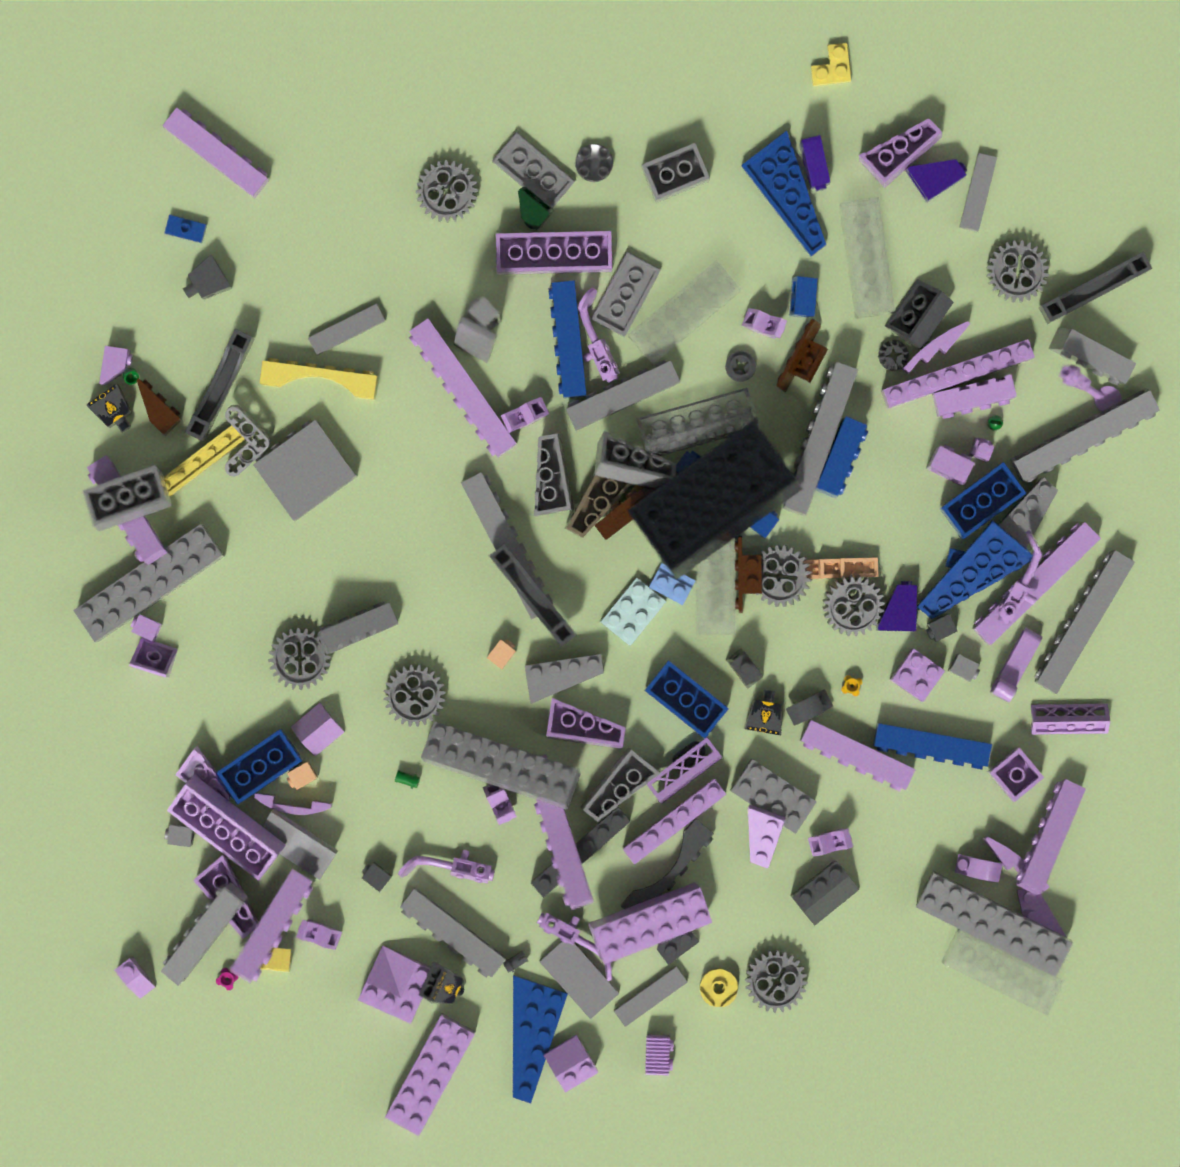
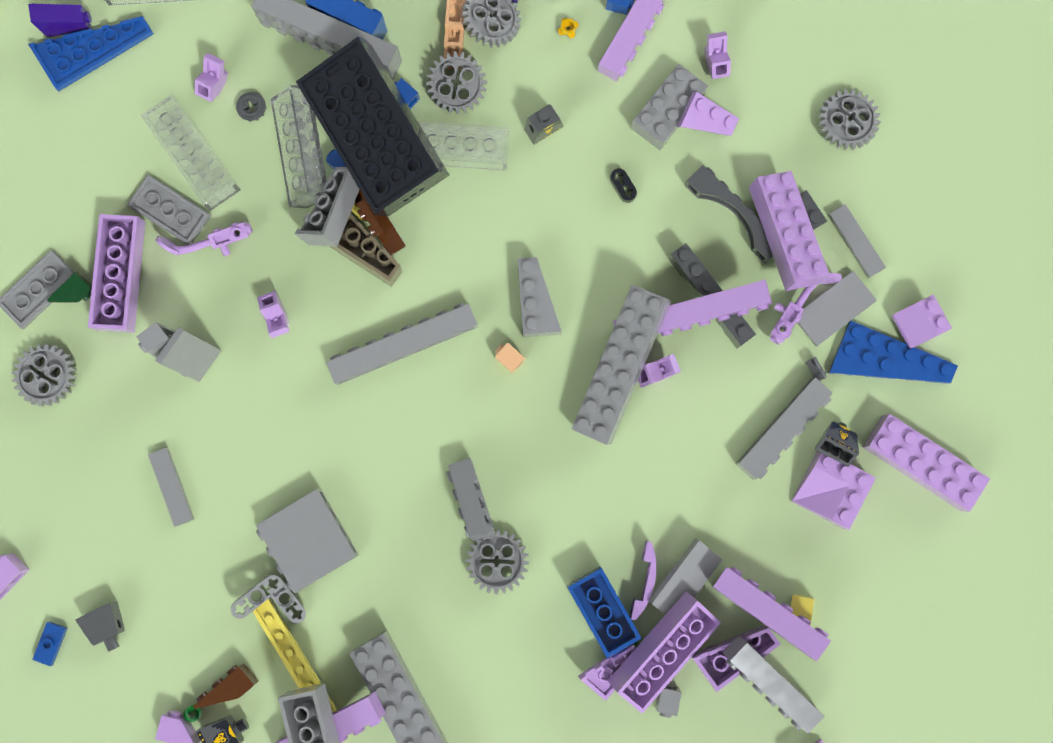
camera: 80 degrees left, 5 degrees down
(146, 627) = (451, 719): lavender brick -> none
(154, 657) = (483, 713): lavender slope -> none
(220, 386) = (190, 607): dark grey arch -> none
(227, 984) = (819, 669): dark pink plate -> none
(279, 374) = (207, 558): light yellow arch -> none
(301, 776) = (616, 569): light nougat brick -> none
(317, 729) = (570, 549): lavender slope -> none
(319, 934) = (777, 564): lavender brick -> none
(376, 876) = (723, 501): dark grey brick -> none
(403, 710) = (557, 460): light grey gear -> none
(407, 779) = (627, 462): green pin -> none
(460, 867) = (719, 416): lavender piece -> none
(463, 388) = (241, 375): lavender brick -> none
(532, 595) = (436, 330): dark grey arch -> none
(552, 479) = (343, 293): light grey wedge -> none
(568, 338) = (205, 267): blue brick -> none
(579, 726) = (586, 290): lavender wedge -> none
(594, 162) = (36, 229): flat silver dish -> none
(619, 784) = (647, 252): light grey wedge -> none
(623, 395) = (266, 219): light grey brick -> none
(633, 611) = (479, 227): light aqua plate -> none
(658, 1054) = (915, 237): lavender brick -> none
(669, 586) = (455, 188): light blue plate -> none
(674, 821) = (687, 203): lavender brick -> none
(675, 172) = (53, 150): light grey brick -> none
(686, 699) = (569, 180): blue brick -> none
(688, 776) = (646, 189): lavender fence -> none
(716, 998) = (847, 184): light yellow plate -> none
(749, 574) = (452, 111): reddish brown bracket -> none
(765, 715) = (590, 109): torso -> none
(803, 297) = (189, 42): blue hinge -> none
(805, 358) = (250, 43): reddish brown bracket -> none
(809, 707) = (587, 66): dark grey brick -> none
(824, 892) = (763, 68): dark grey slope -> none

